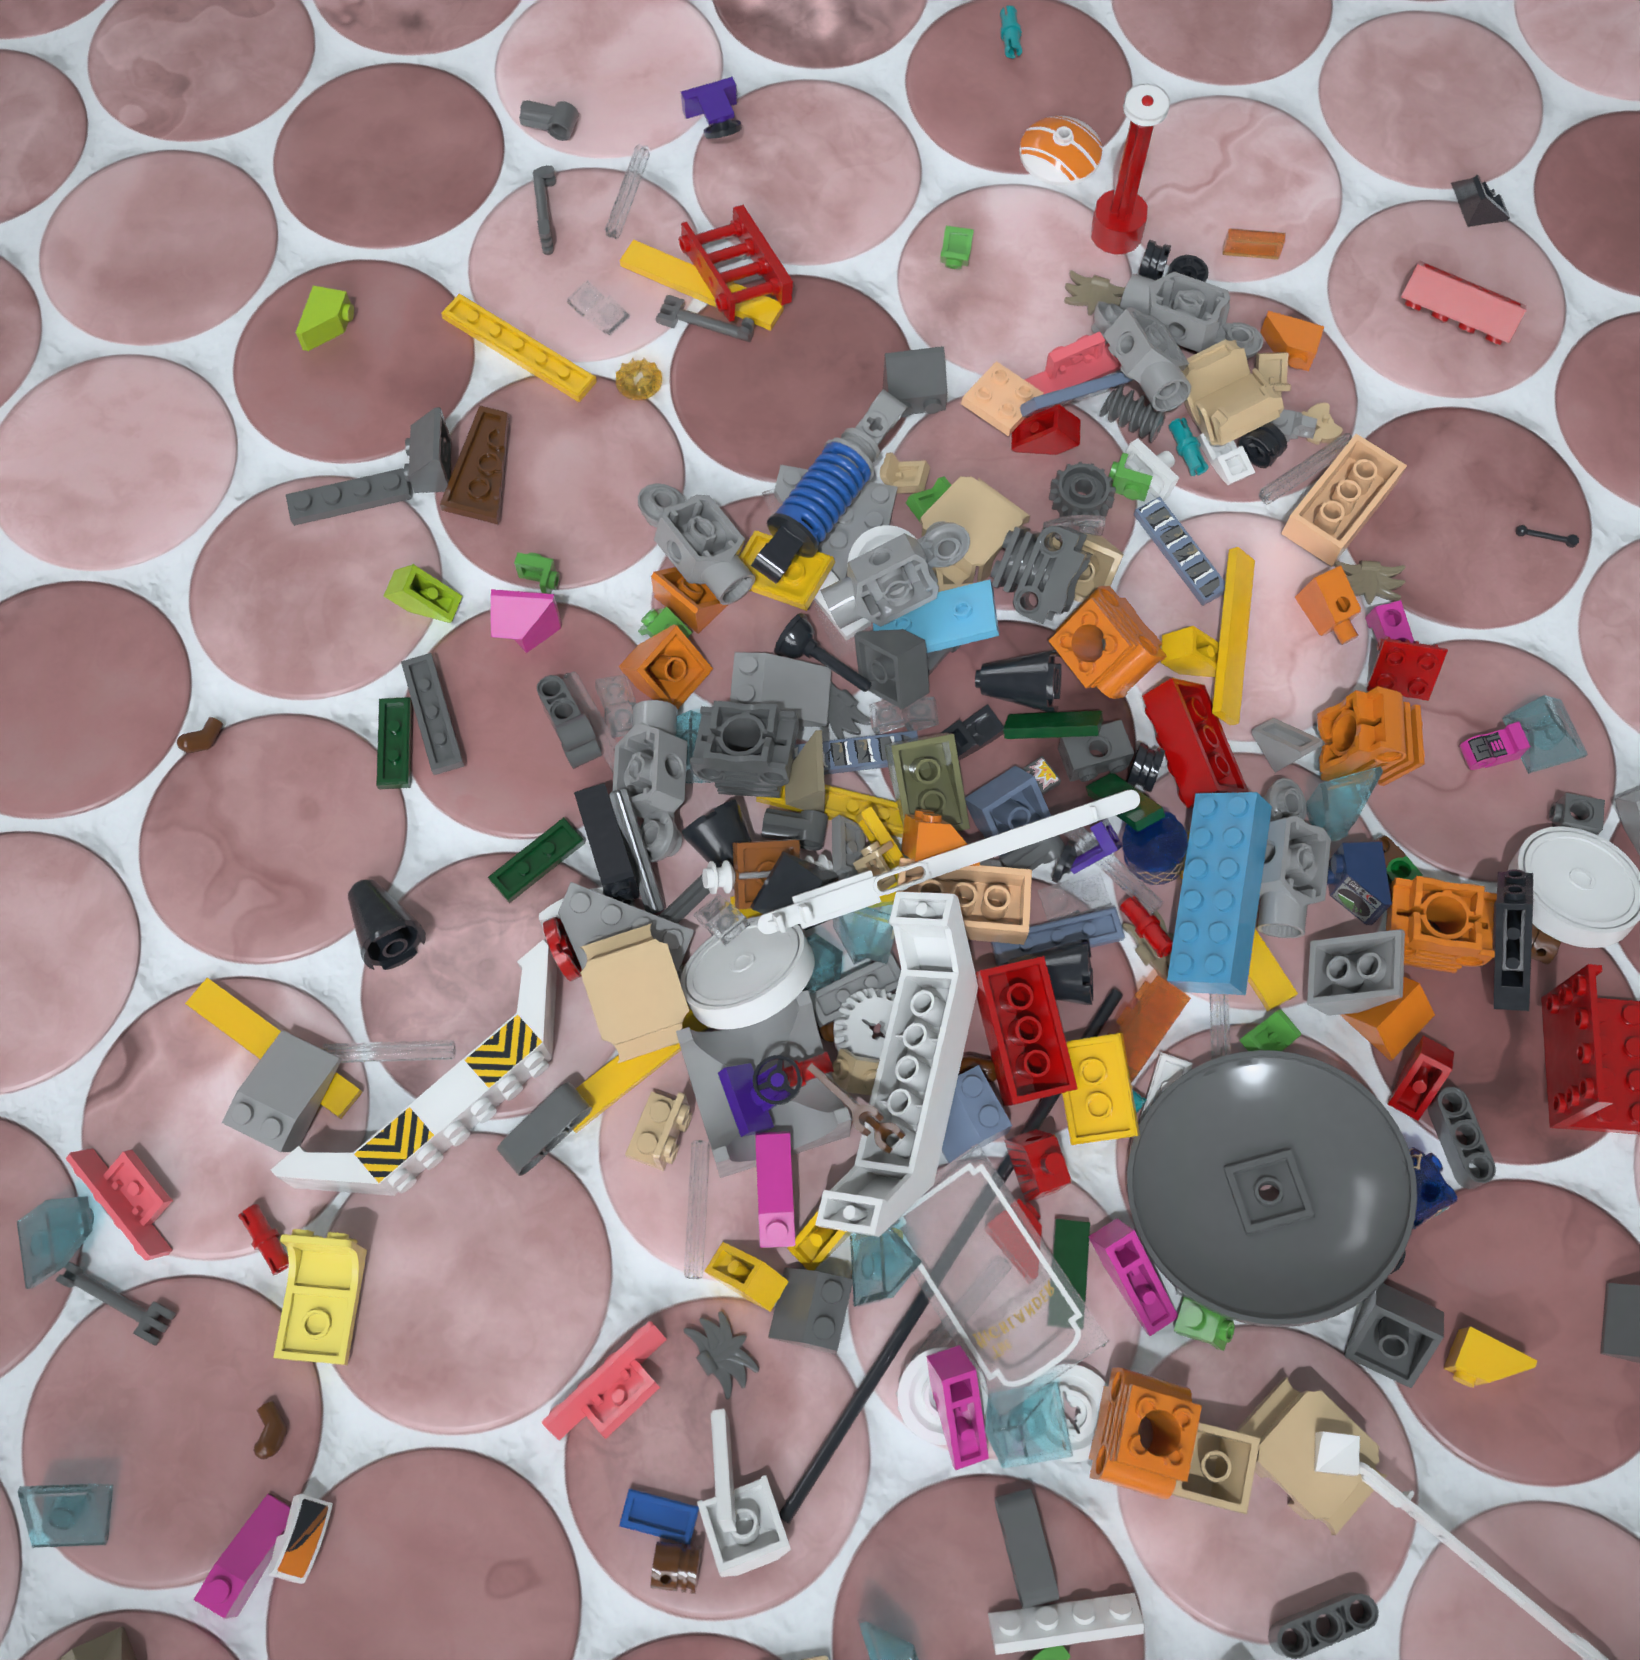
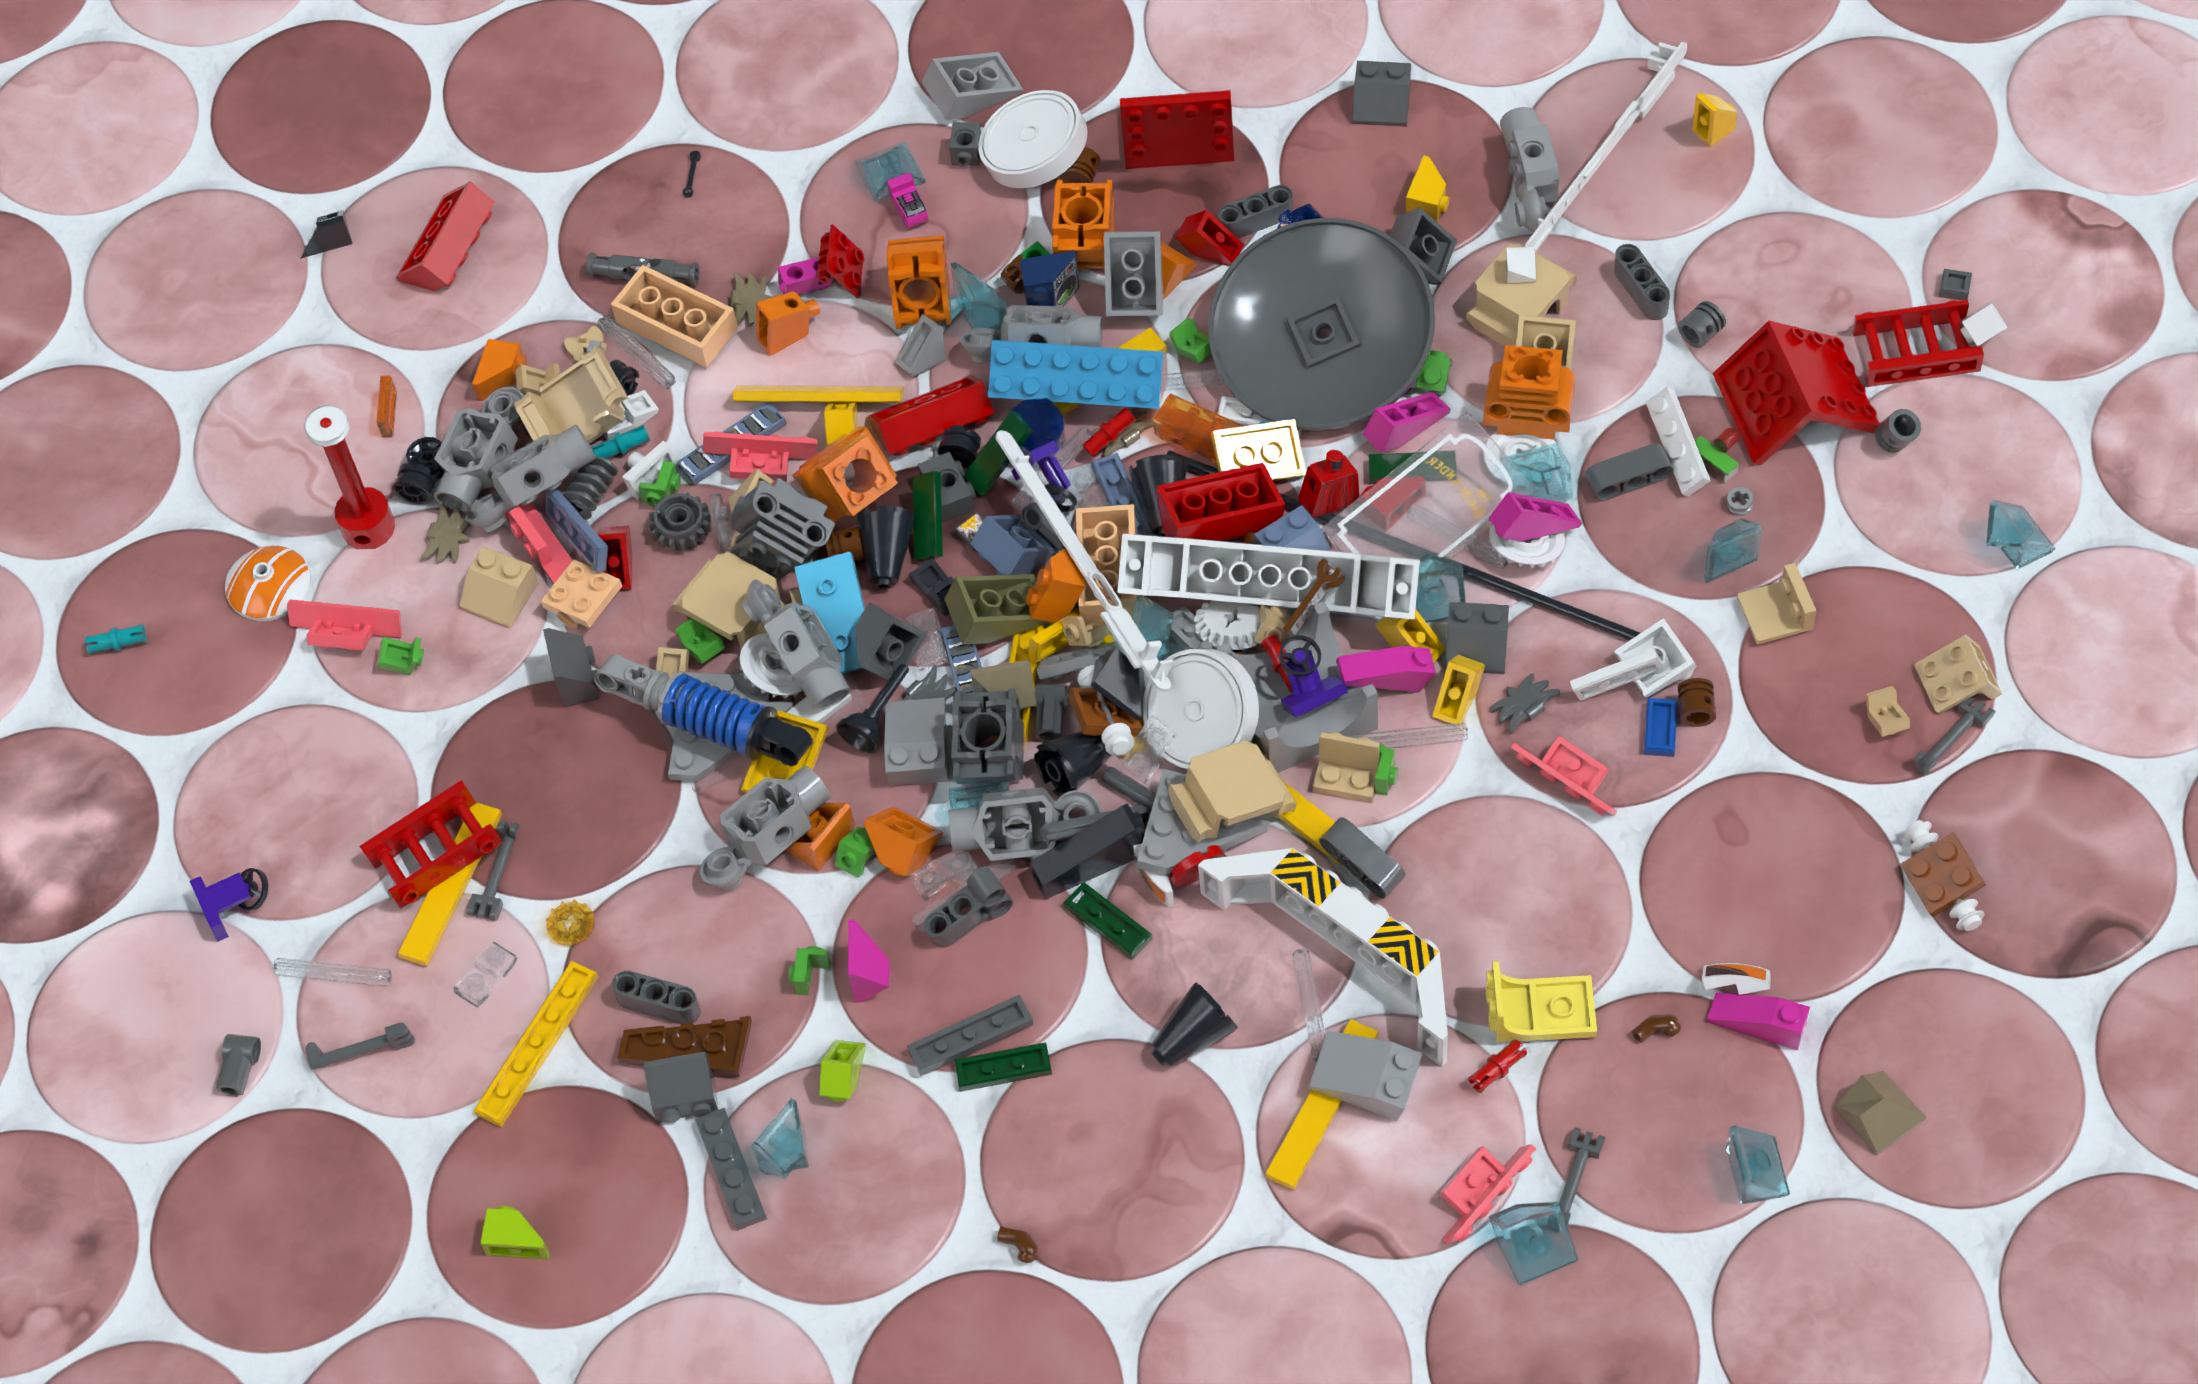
camera: 90 degrees left, 10 degrees down
(344, 534) = (782, 1143): none -> clear light blue slope
(536, 454) = (647, 987): none -> dark grey beam
(651, 1174) = (1386, 771): none -> bright green bracket
(994, 203) = (343, 624): none -> coral bracket
(1025, 331) = (497, 587): none -> tan slope
(1028, 637) = (846, 541): none -> reddish brown piece
(1151, 571) = (759, 452): none -> coral bracket
(1413, 480) = (619, 268): none -> dark grey piece
(1513, 940) = (1086, 165): black slope -> none
(1525, 1506) = (1531, 163): none -> light grey brick

